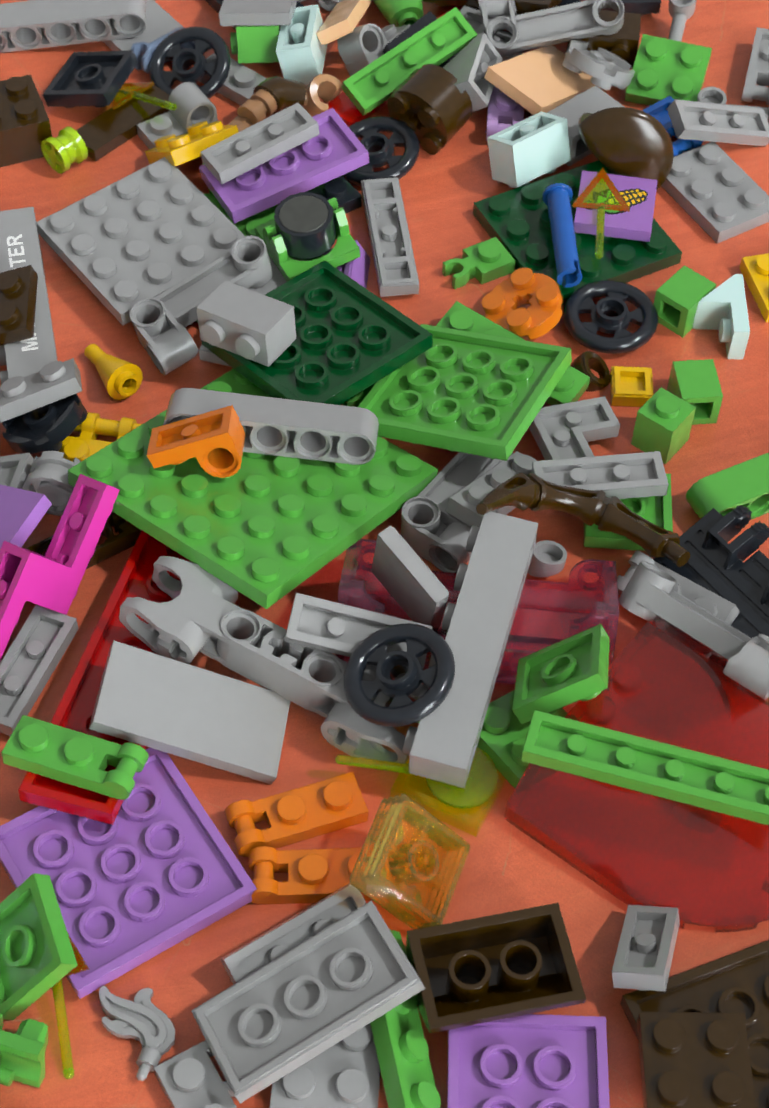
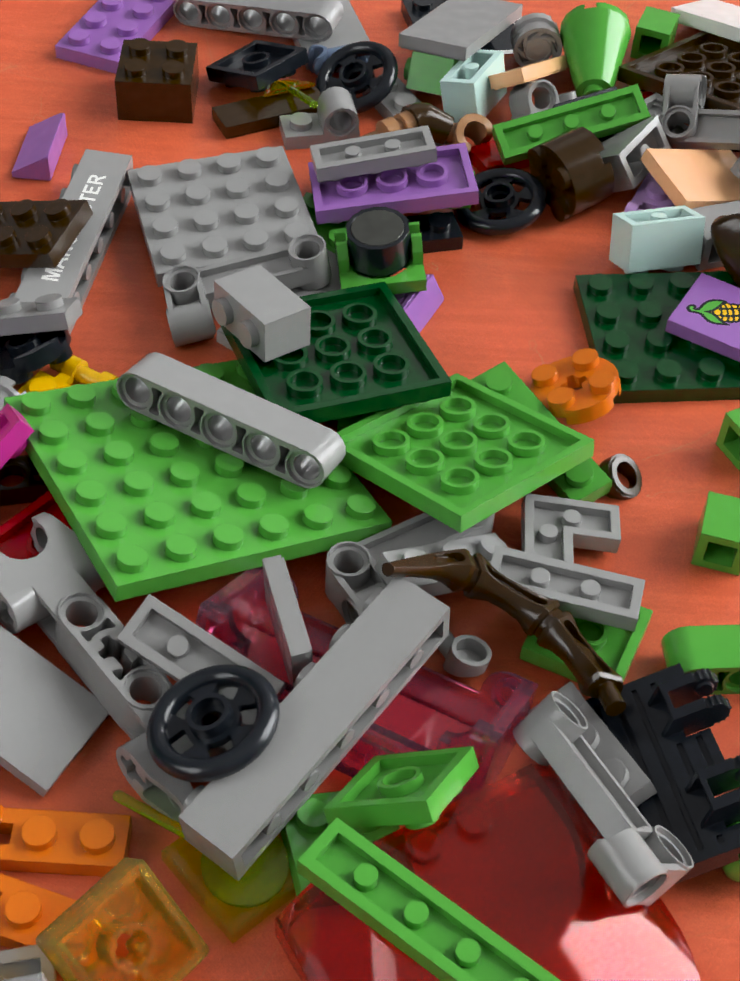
camera: 20 degrees right, 5 degrees down
(64, 149) = (197, 118): lime wheel -> none
(119, 376) = (126, 333): yellow cone -> none
(188, 146) = (299, 141): yellow plate -> none
(211, 437) = (154, 411): orange plate -> none
(389, 237) = (470, 284): light grey plate -> none
(483, 260) = (556, 333): bright green plate -> none
(558, 200) = (661, 293): blue pin -> none
(603, 196) = (707, 301): clear neon green piece -> none
(610, 316) = (668, 427): black plate -> none
(631, 386) = (658, 506): yellow tile -> none
(663, 424) = (669, 556): bright green brick -> none

